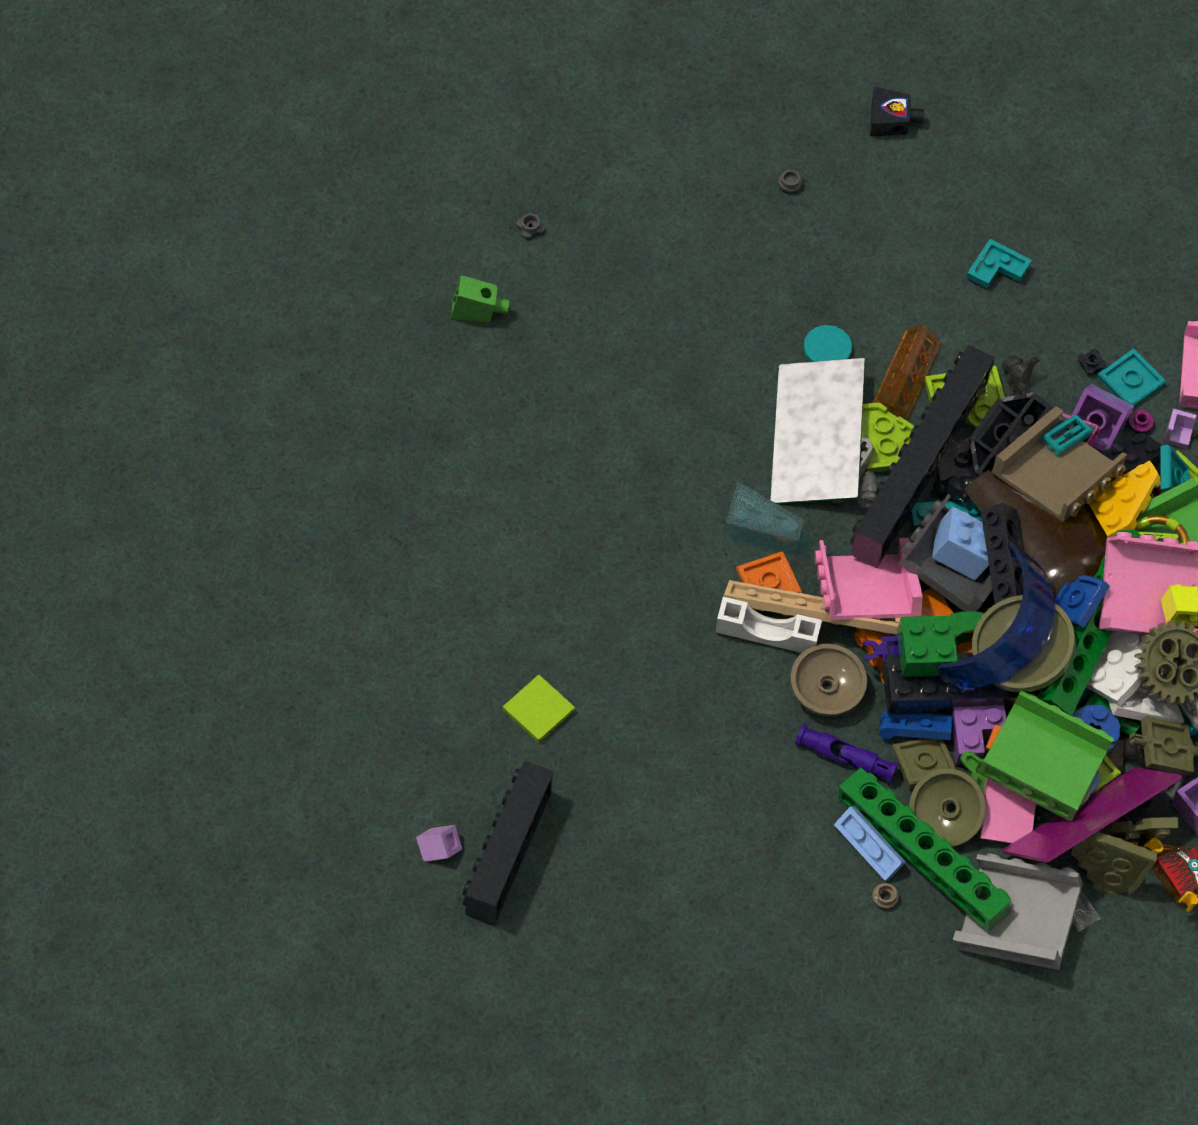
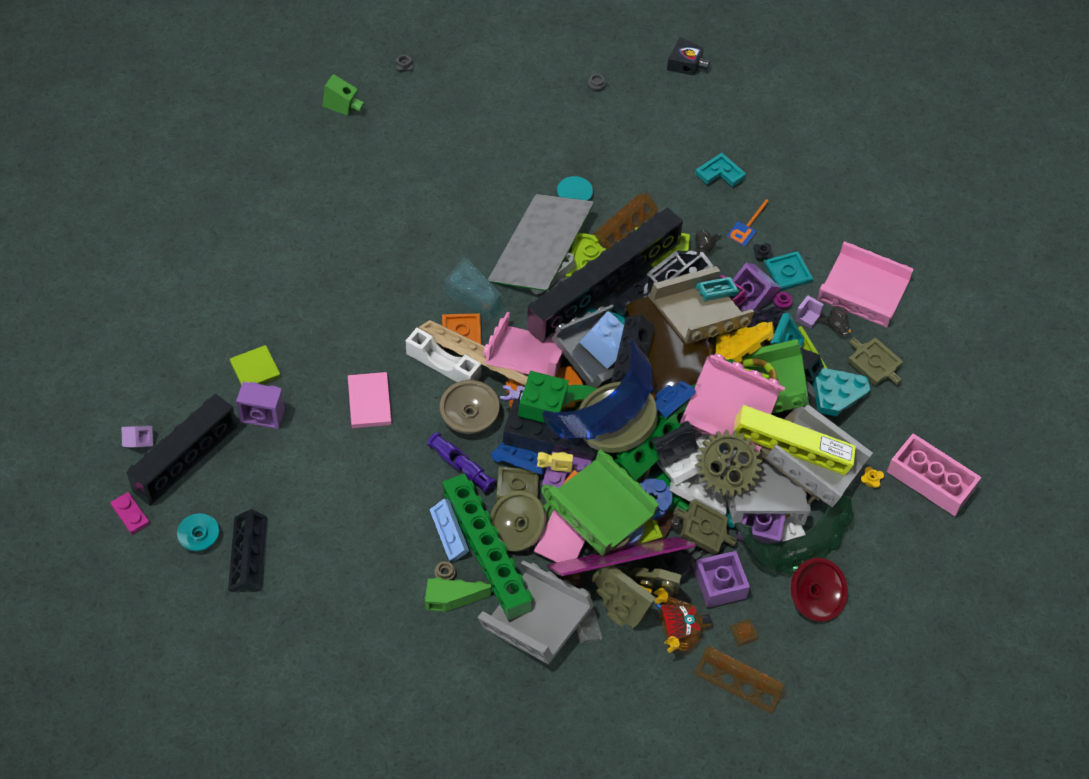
camera: 20 degrees right, 5 degrees down
(477, 943) = (129, 513): none -> dark pink plate
(573, 929) = (194, 525): none -> teal dish
(577, 756) = (261, 405): none -> medium lavender brick
(650, 945) = (251, 551): none -> black fence
(698, 707) = (369, 400): none -> bright pink tile
(902, 923) = (448, 595): none -> bright green slope
(971, 719) = (557, 461): none -> light yellow plate
(1056, 343) = (743, 233): none -> piece
(1106, 658) = (675, 444): none -> black plate

